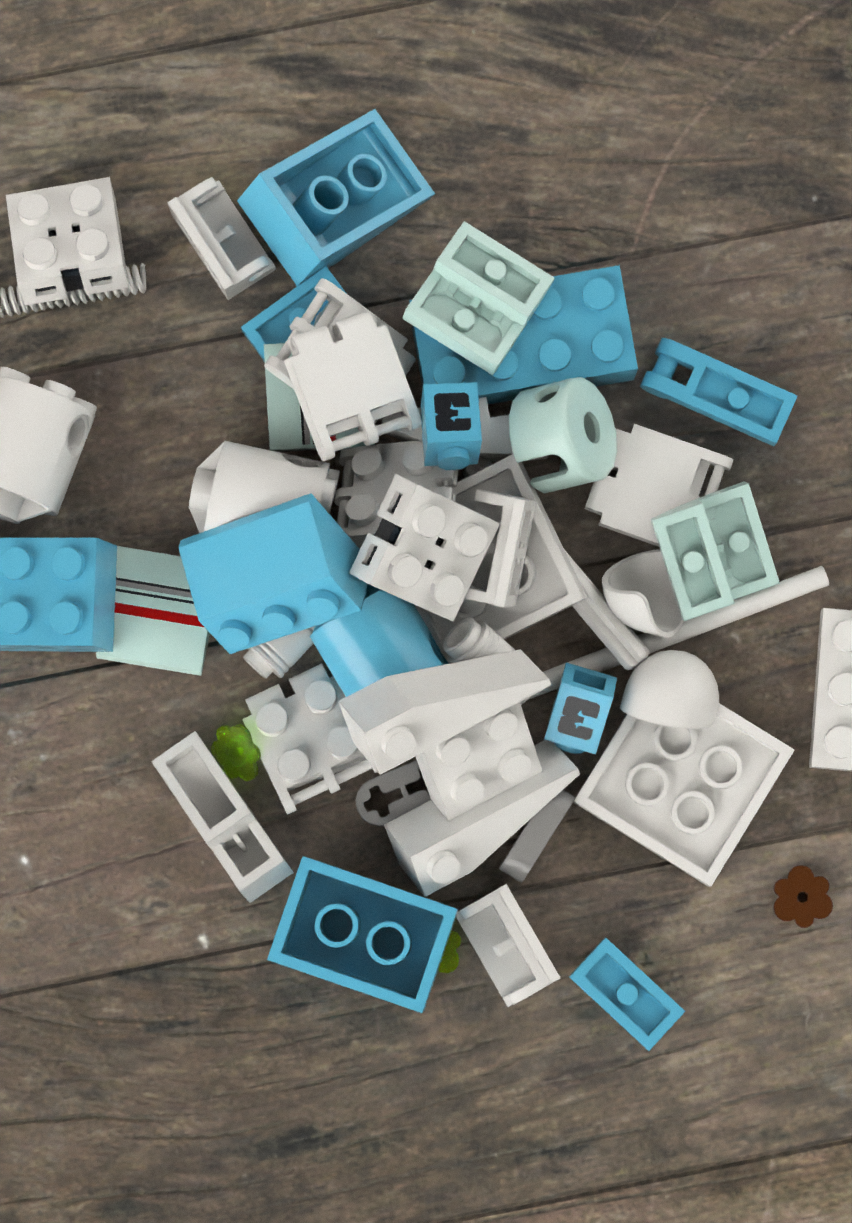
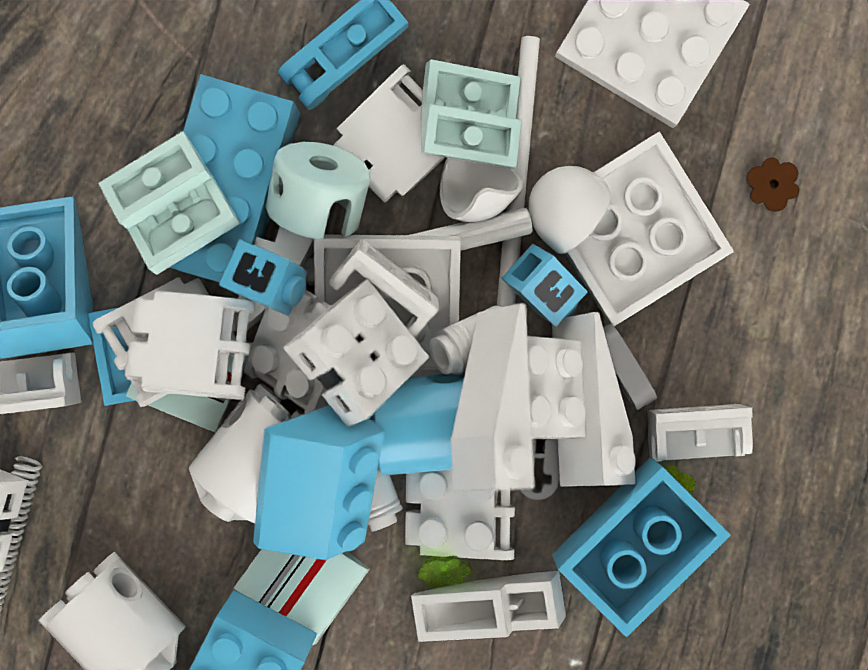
camera: 60 degrees left, 5 degrees up
(626, 994) = (782, 358): medium azure plate -> none

